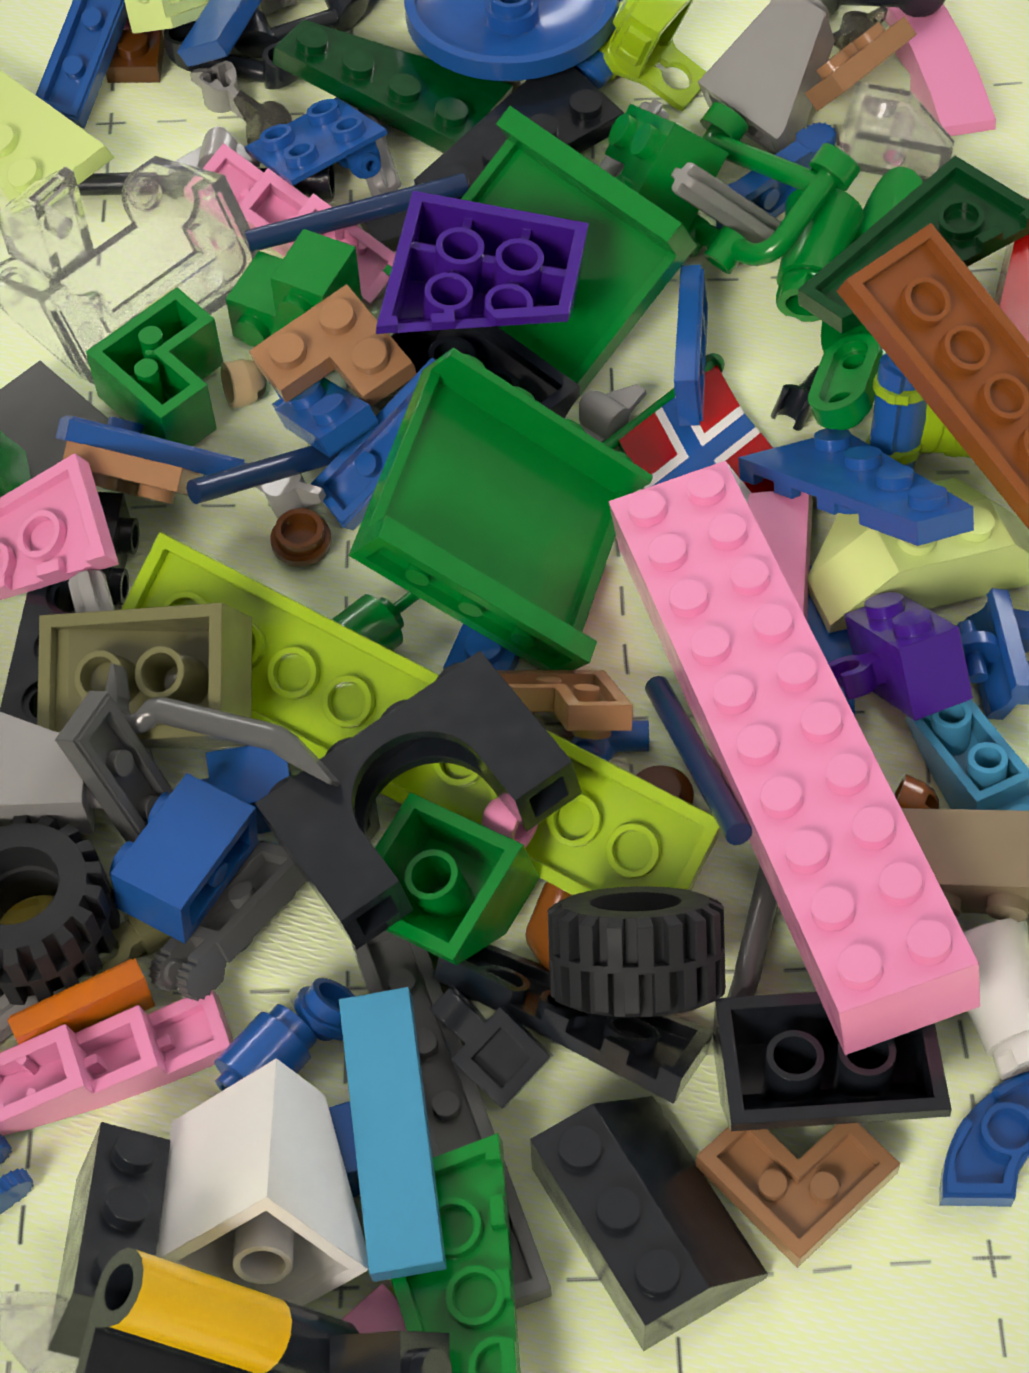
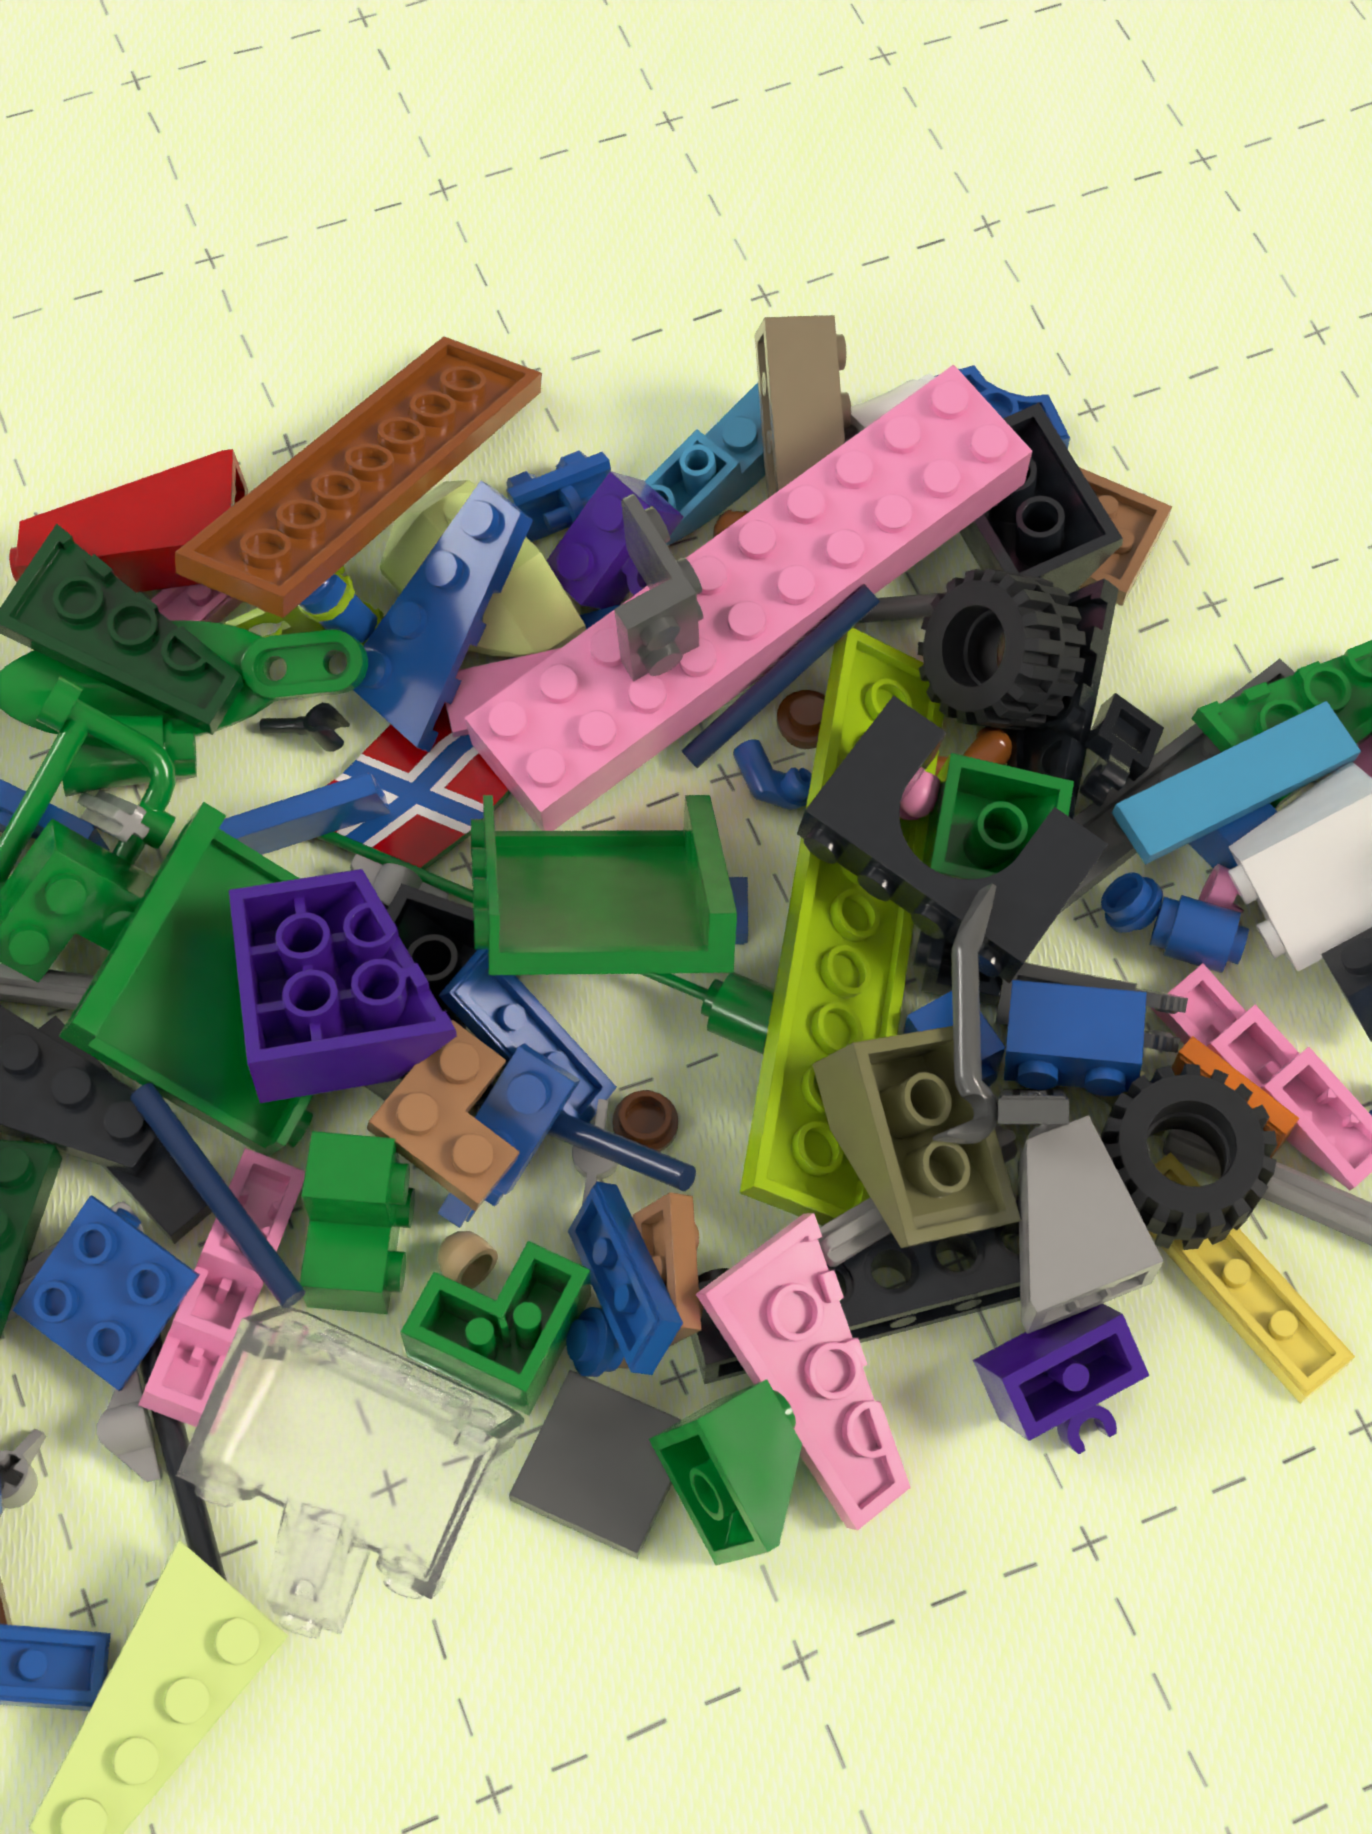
camera: 115 degrees left, 5 degrees up
(260, 116) = (64, 1388): clear smoke piece -> none
(581, 699) = (747, 798): medium nougat plate -> none
(644, 1216) = (1192, 619): black slope -> none
(764, 580) = (663, 621): none -> dark grey bracket

